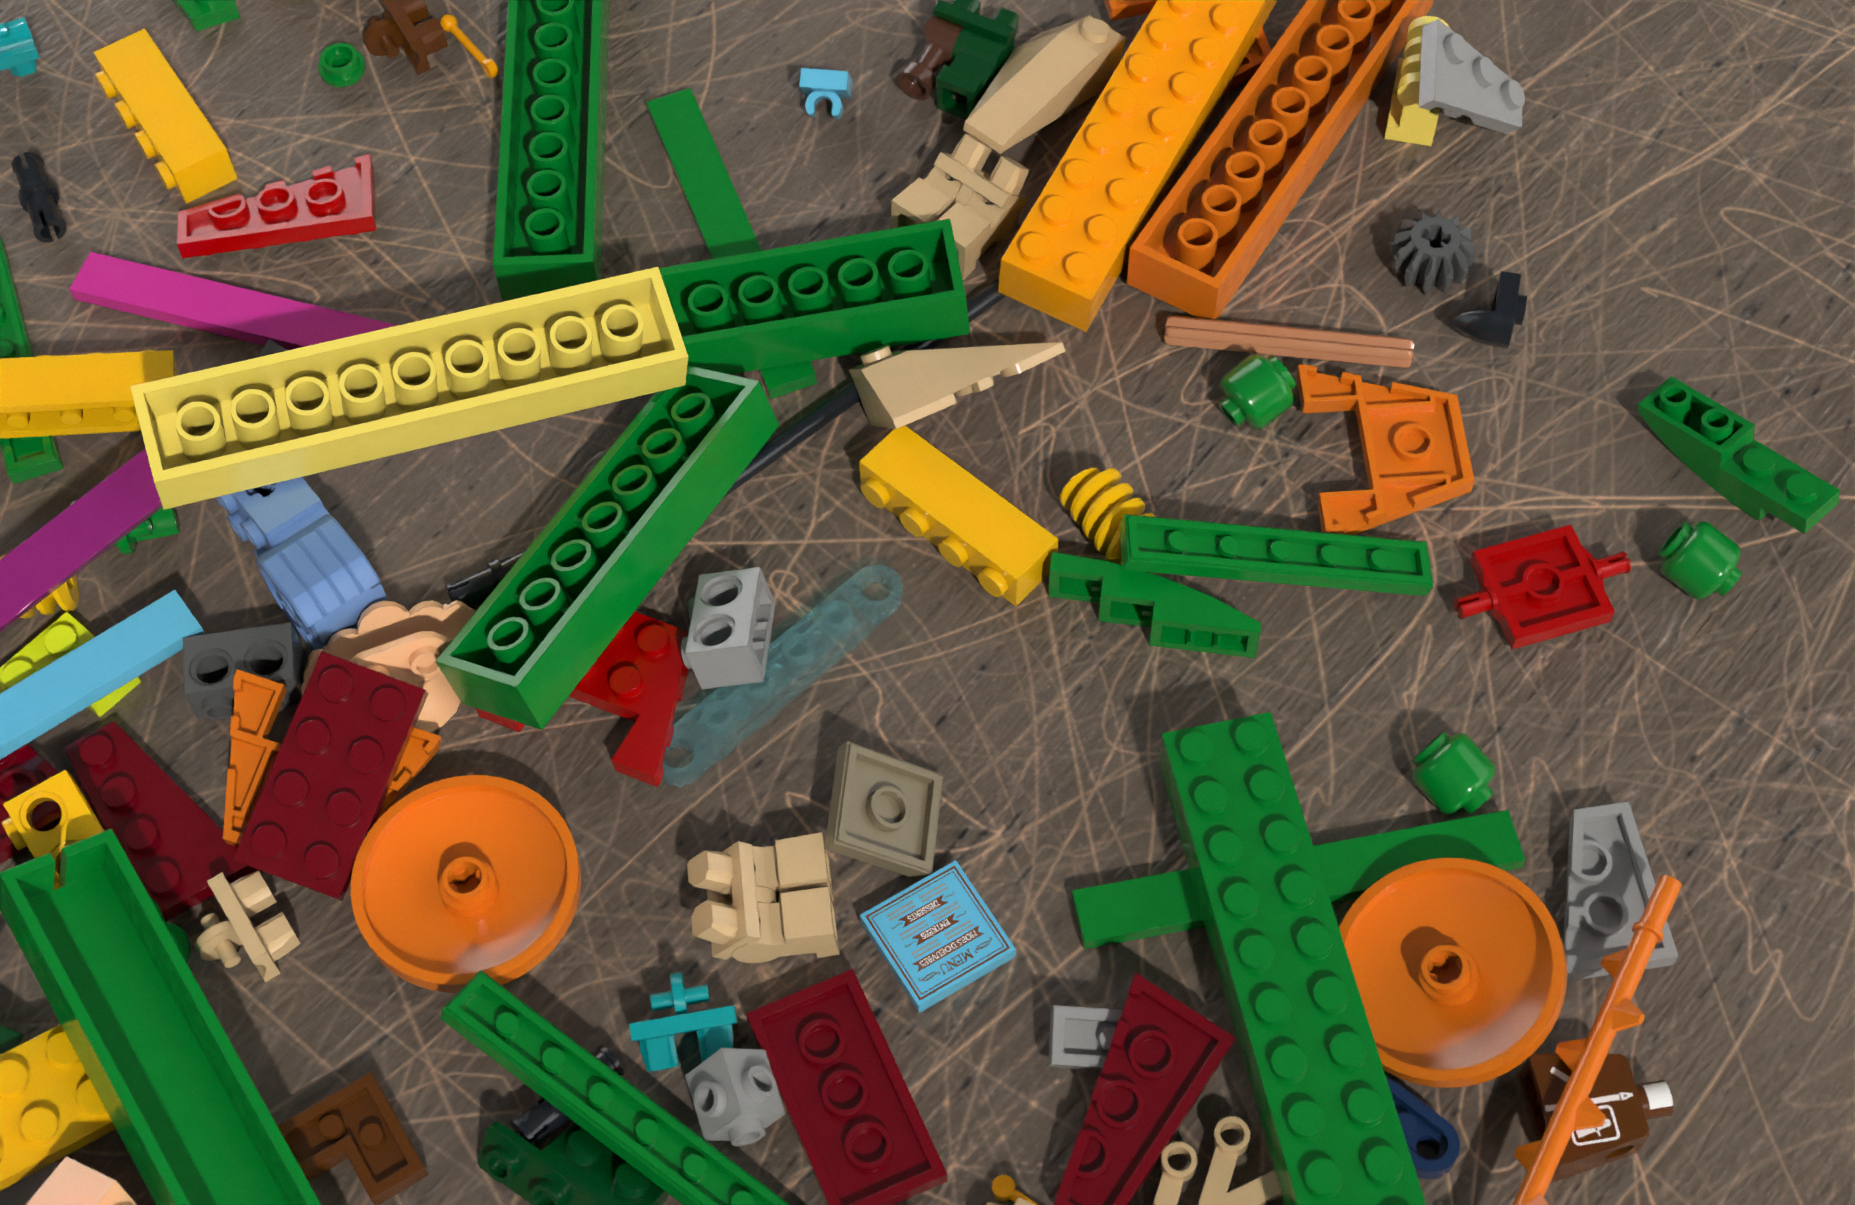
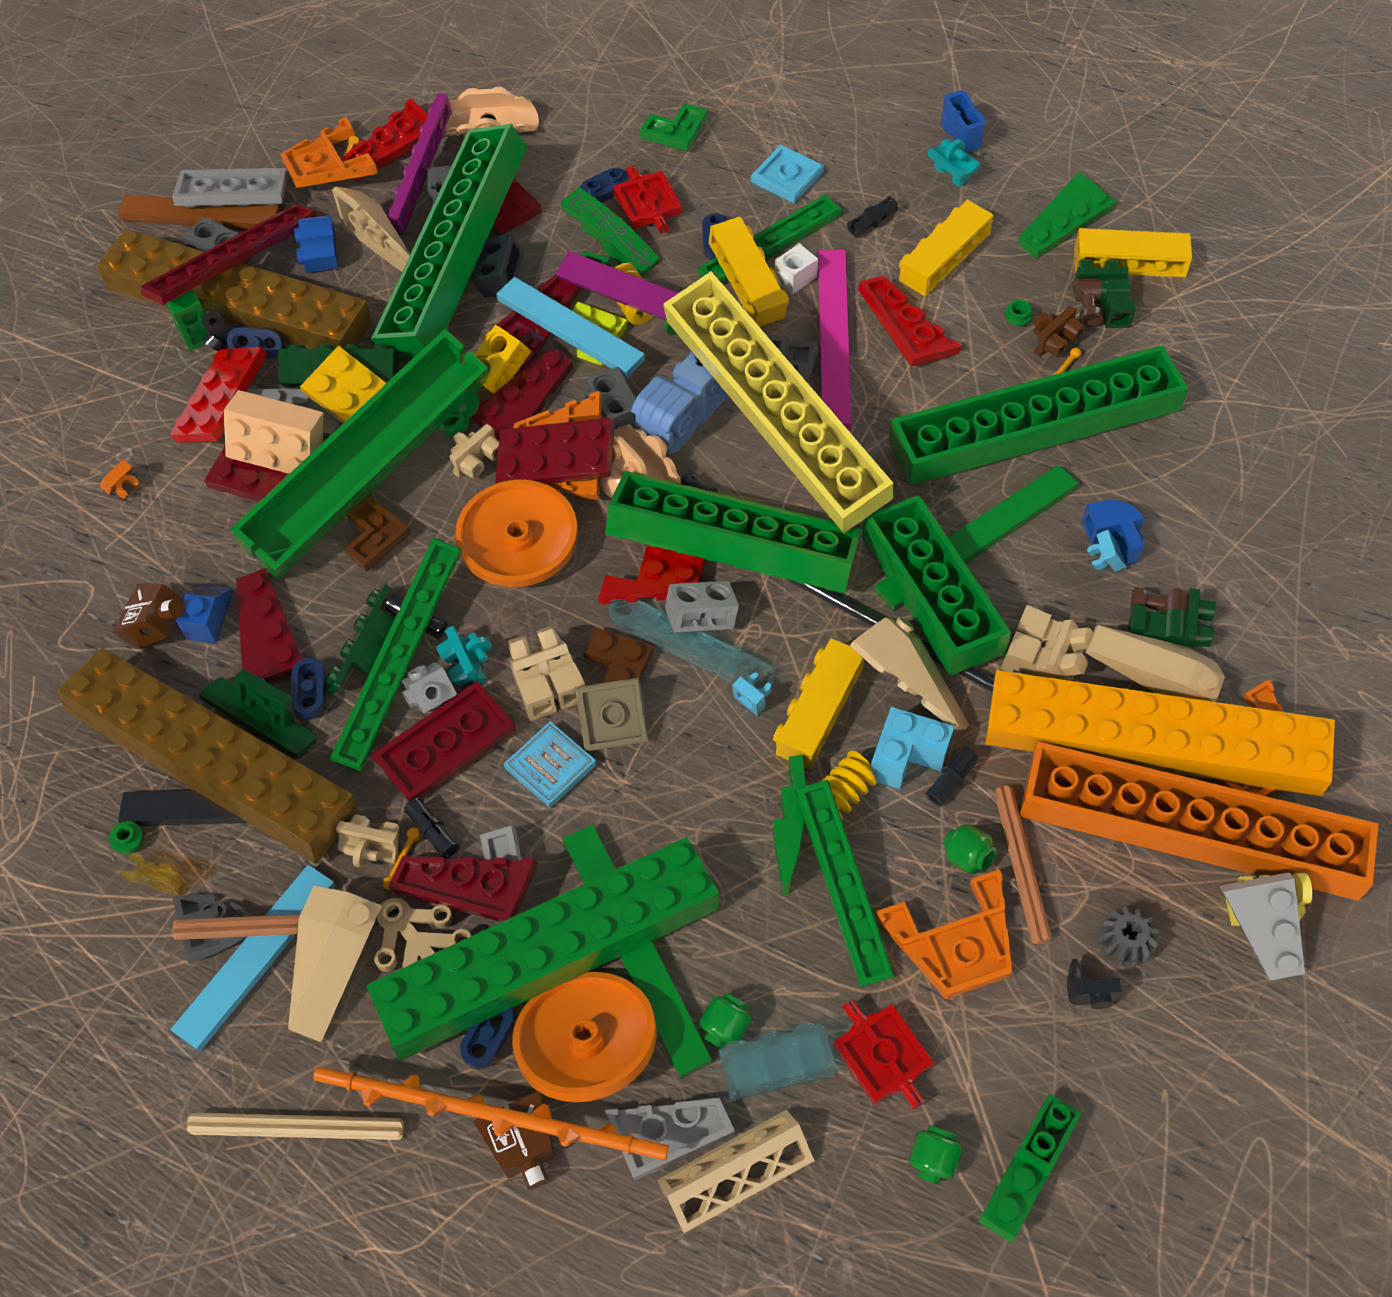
camera: 75 degrees right, 0 degrees up
(93, 322) = (796, 268): none -> white brick
(769, 775) = (623, 655): none -> reddish brown plate
(777, 64) = (1121, 521): none -> blue brick
(912, 606) = (749, 695): none -> medium azure tile
(1007, 1149) = (431, 828): none -> black pin
(1063, 420) = (906, 740): none -> medium azure brick
(1131, 383) = (952, 776): none -> black axle
(1530, 723) = (776, 1061): none -> clear light blue brick
(1678, 818) = (729, 1159): none -> tan fence

